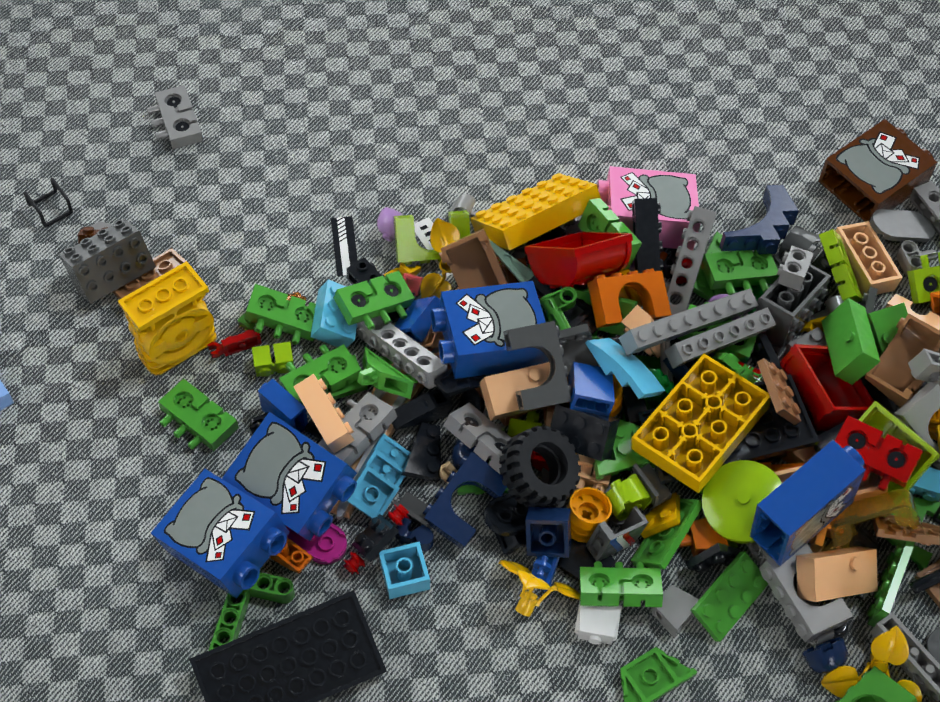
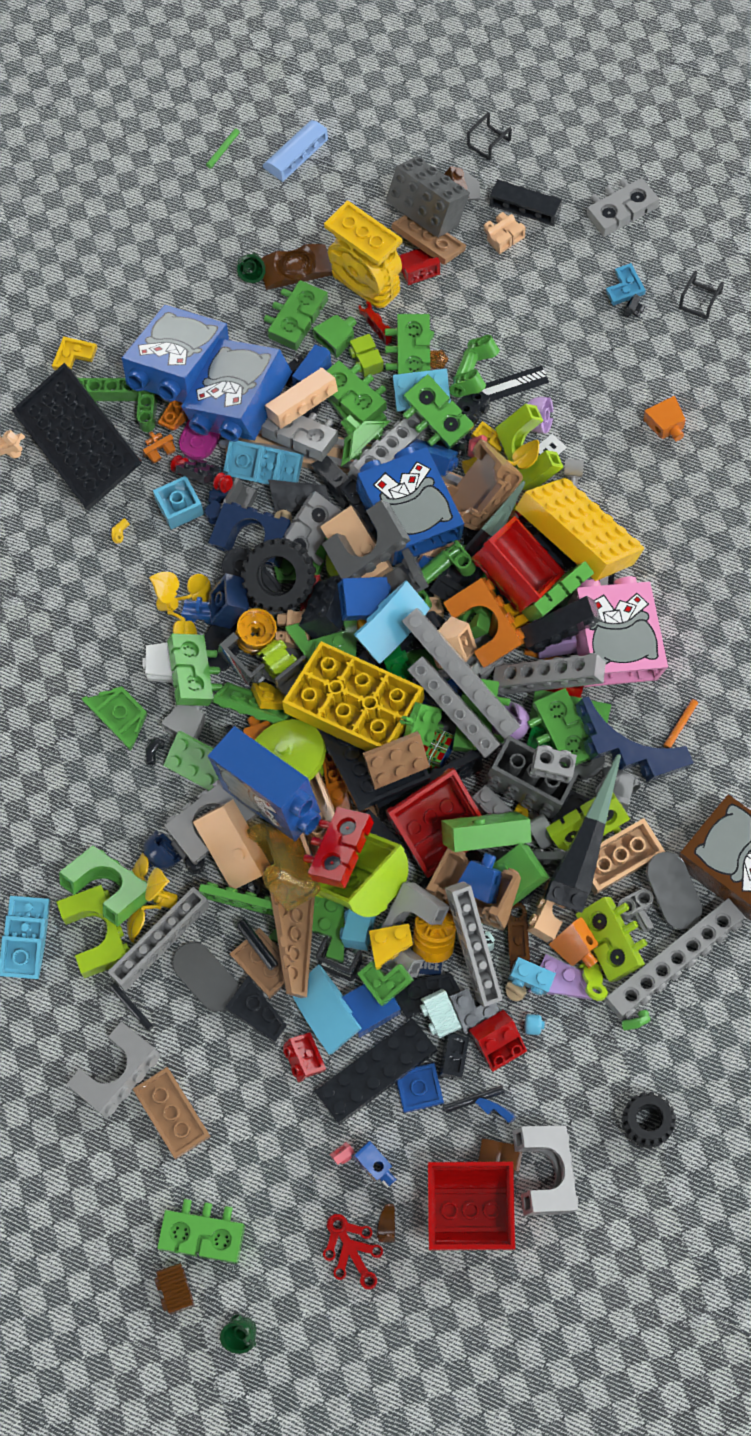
camera: 85 degrees right, 10 degrees up
(123, 447) = (251, 268): none -> dark green helmet
(132, 409) = (302, 264): none -> reddish brown slope
(140, 189) = (525, 202): none -> black brick
(159, 659) = (73, 349): none -> yellow plate
(171, 213) = (504, 233): none -> light nougat hips
(237, 382) = (335, 334): none -> bright green torso
(268, 129) = (628, 286): none -> dark azure plate
(289, 79) = (717, 292): none -> black piece
(293, 132) = (633, 307): none -> black tile
(308, 267) = (468, 379): none -> bright green piece
(319, 582) = (152, 450): none -> orange hips
(417, 646) = (117, 531): none -> yellow arm
(425, 133) = (666, 419): none -> orange torso
(698, 650) = (154, 745): none -> black arm
(736, 192) = (680, 724): none -> orange bar
(892, 284) = (577, 868): none -> black plate
(898, 352) = (483, 879): none -> blue torso

